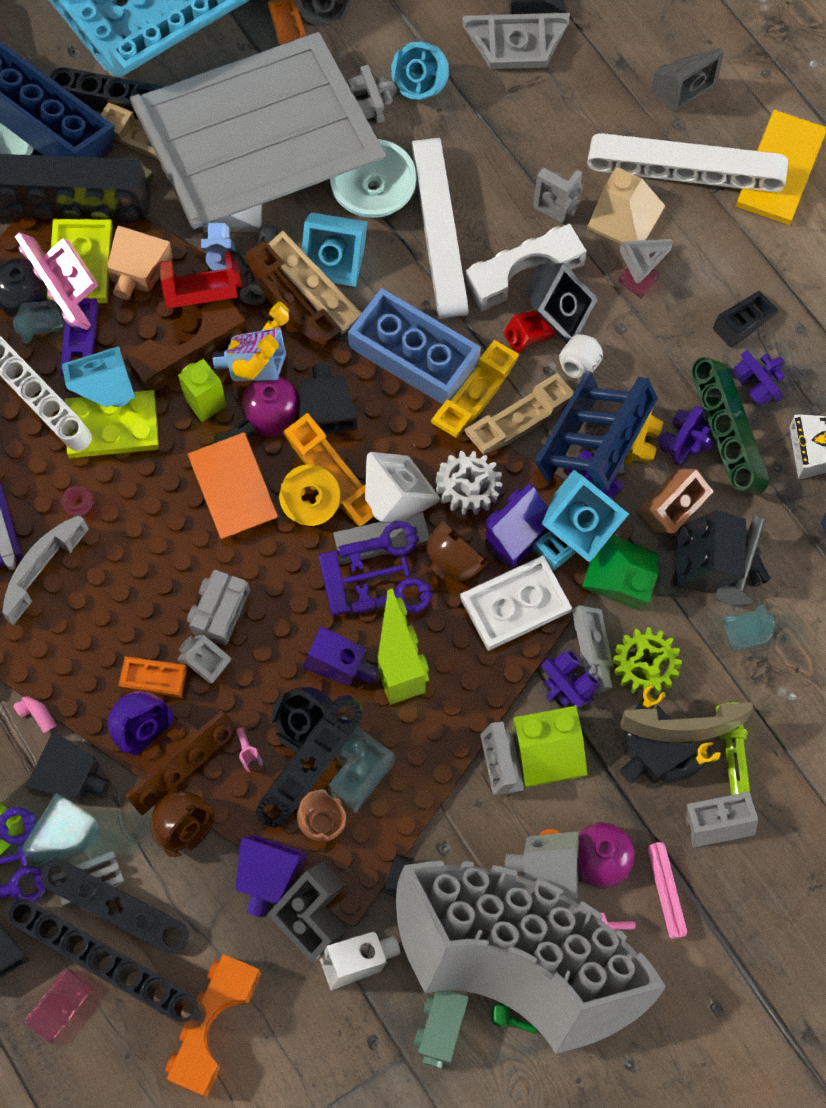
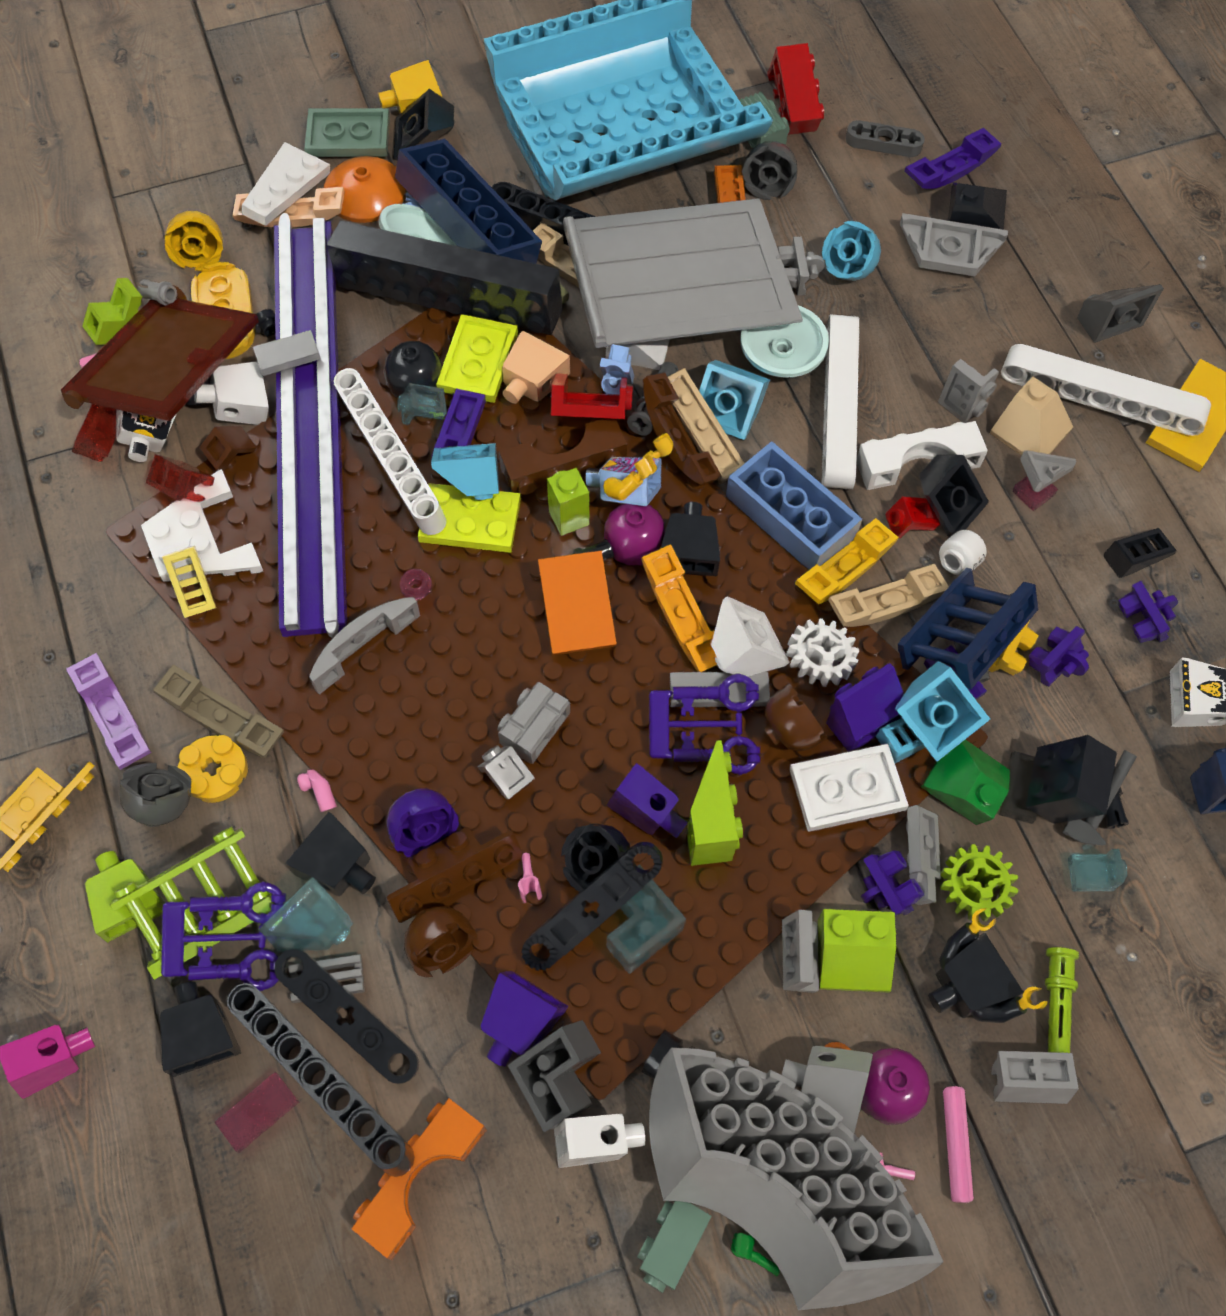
camera: 10 degrees right, 5 degrees down
(63, 274) = (457, 363): bright pink bracket -> none
(153, 677) = (448, 778): orange plate -> none
(294, 488) = (639, 618): yellow plate -> none
(321, 816) = (591, 969): nougat hair -> none
(646, 724) = (972, 952): dark tan slope -> none
(675, 501) = (1039, 718): nougat brick -> none
(740, 432) = (1118, 664): dark green beam -> none

